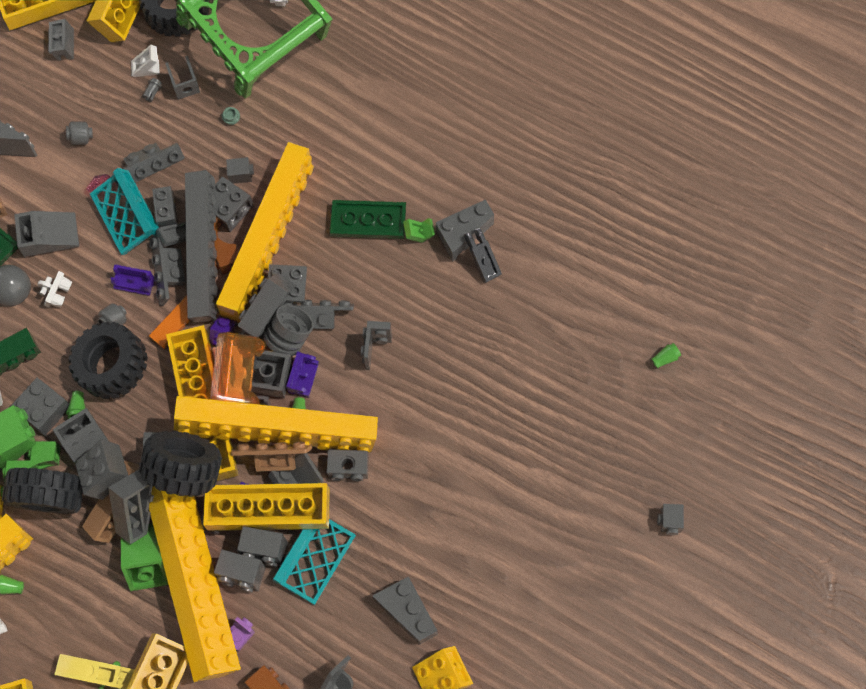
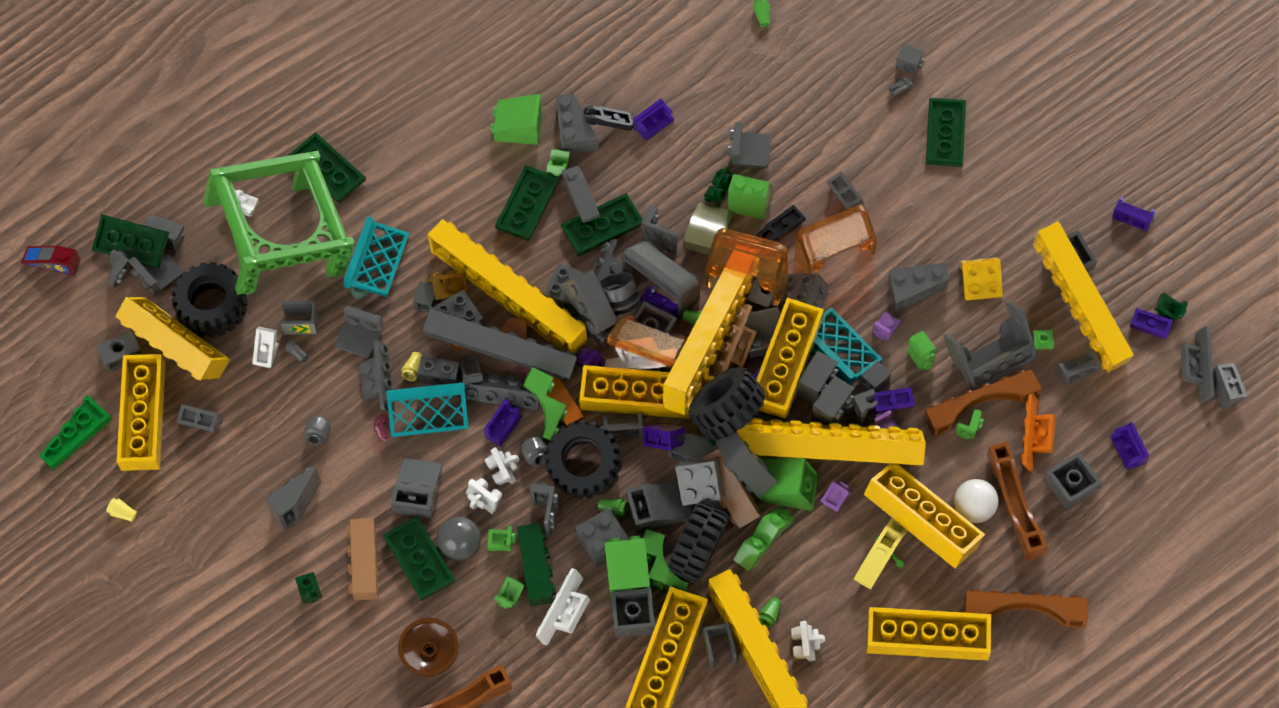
camera: 70 degrees left, 5 degrees down
(15, 320) = (501, 539): none -> bright green bracket
(57, 349) = (545, 496): none -> dark grey bracket
(81, 553) = (766, 533): none -> bright green arch
(89, 296) = (498, 459): none -> white hips
(149, 608) = (836, 495): none -> medium lavender bracket
(156, 420) = (662, 436): none -> dark purple hinge
(163, 384) = (624, 426): none -> dark grey hinge
(165, 182) = (411, 367): none -> light yellow cone
(168, 294) = (539, 385): none -> bright green arch
(185, 130) = (359, 332): none -> dark grey bracket
(244, 600) = (861, 405): none -> dark grey hinge
(252, 181) = (448, 285): none -> pearl gold bracket
(266, 100) = (362, 249): none -> teal fence
(266, 629) = (893, 400): none -> dark purple hinge
(287, 603) = (875, 377): none -> dark grey brick
(319, 360) = (664, 273): none -> dark grey windscreen
(328, 640) = (922, 351): none -> bright green brick
(342, 43) = (338, 173): none -> dark green plate
(352, 596) = (886, 326): none -> medium lavender bracket
(357, 437) = (750, 256): none -> clear orange windscreen
(359, 503) = (806, 289): none -> dark grey bracket
(369, 291) = (615, 220): none -> dark green plate
(390, 259) = (580, 194): none -> dark grey slope
(399, 388) = (704, 225): none -> olive slope
(420, 512) = (834, 236): none -> clear orange windscreen
(429, 456) = (782, 224): none -> black hinge
(443, 383) = (722, 181): none -> dark green hinge
(450, 179) = (518, 120): none -> bright green slope
(450, 412) = (749, 196): none -> bright green slope
(487, 505) = (845, 191): none -> dark grey hinge
(501, 297) = (653, 119): none -> dark purple hinge
(504, 395) = (749, 148): none -> dark grey bracket
(602, 584) = (945, 132): none -> dark green tile
(637, 520) = (901, 86): none -> dark grey pin

